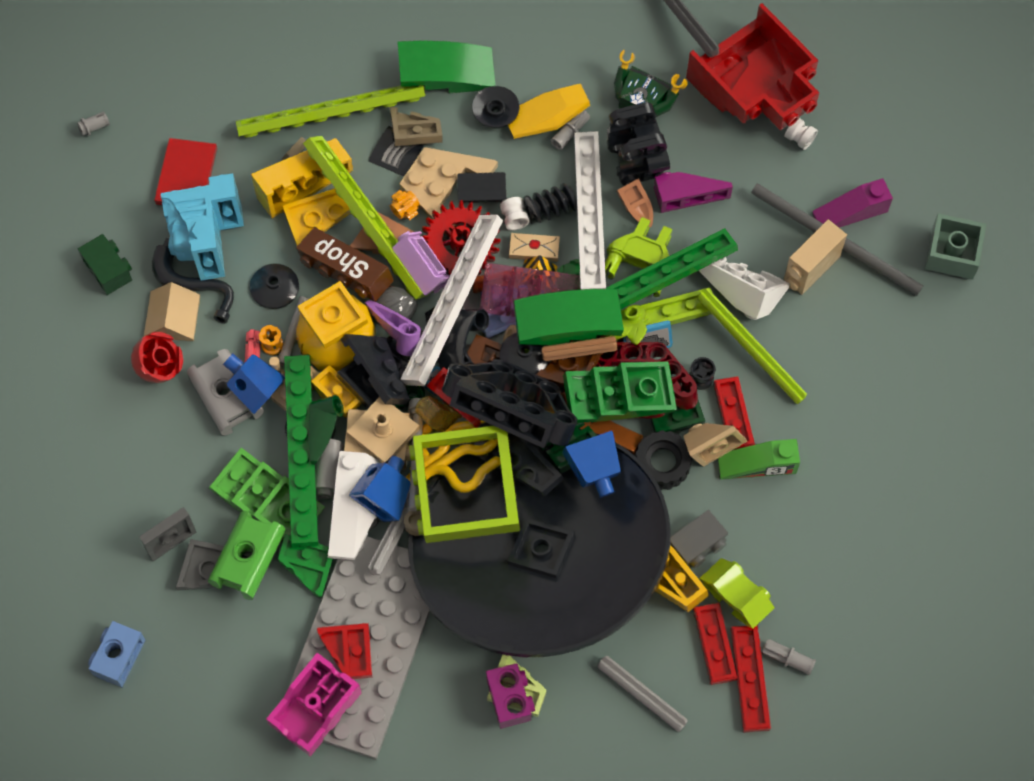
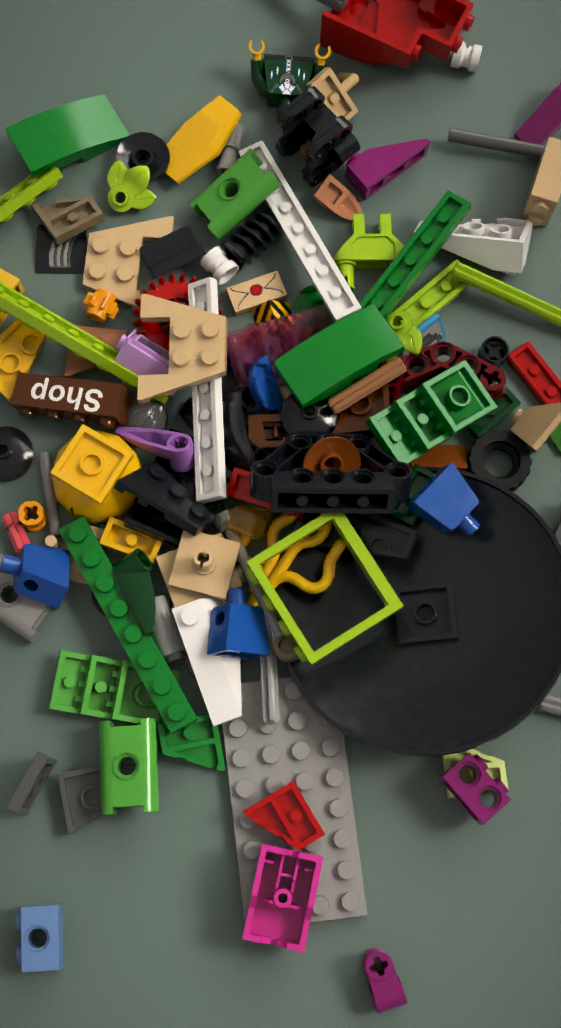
camera: 30 degrees left, 10 degrees up
(457, 262) = (195, 347): none -> tan wing
(476, 124) = (132, 184): none -> lime plate
(499, 316) = (264, 385): none -> blue plate
(523, 378) = (344, 454): none -> dark orange dish
(553, 163) = (242, 178): none -> bright green piece
(672, 120) = (336, 90): none -> tan plate

